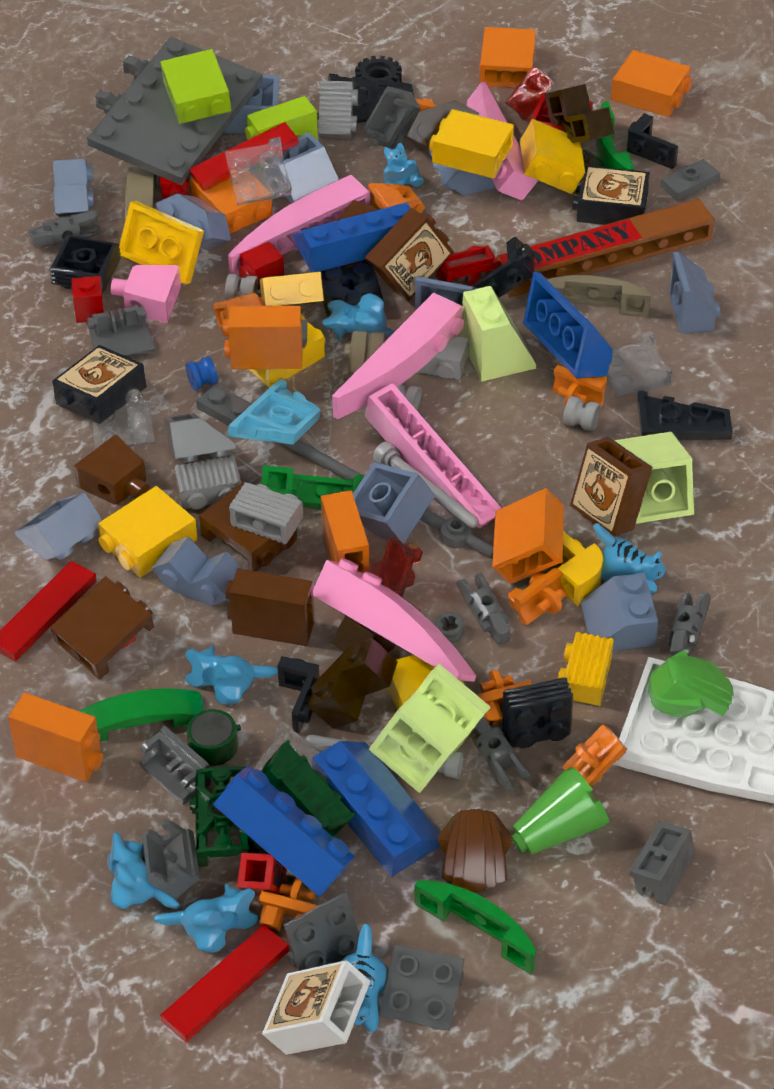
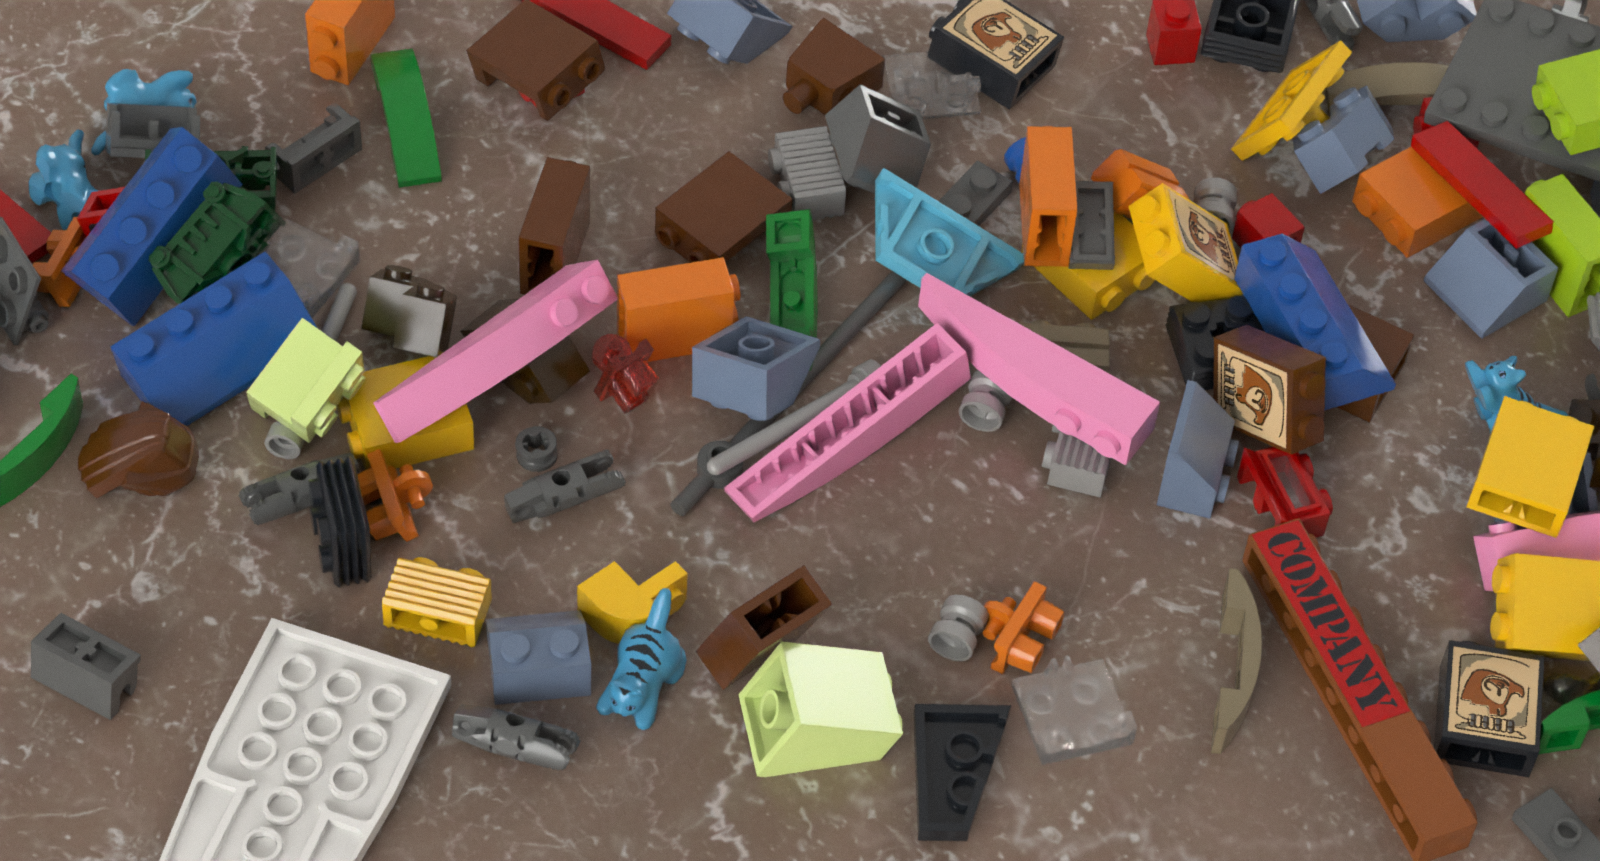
camera: 85 degrees right, 5 degrees up
(124, 333) = (1111, 76): dark grey hinge -> none
(145, 529) = (717, 107): yellow brick -> none
(152, 287) = (1200, 103): bright pink torso -> none
(193, 574) = (642, 152): sand blue brick -> none
(213, 736) = (355, 183): piece -> none
(227, 674) = (454, 190): dark azure animal -> none
(258, 173) = (1435, 196): clear piece -> none
(266, 512) = (714, 210): light grey brick -> none
(298, 676) = (451, 271): black bracket -> none
(309, 211) = (1382, 285): bright pink slope -> none
(363, 317) = (1141, 340): dark azure animal -> none
(388, 195) = (1431, 396): orange piece -> none
(493, 337) = (1109, 507): yellowish green slope -> none
(512, 273) = (1262, 532): black bracket -> none
(528, 536) = (680, 529): orange brick -> none
(541, 596) = (574, 546): orange hips -> none
(559, 815) = (176, 551): bright green cone -> none
(565, 331) = (1116, 595): blue slope -> none
(596, 754) = (257, 584): orange hips -> none
(689, 686) = (369, 710): bright green hair -> none
(692, 296) = (1232, 792): sand blue slope -> none

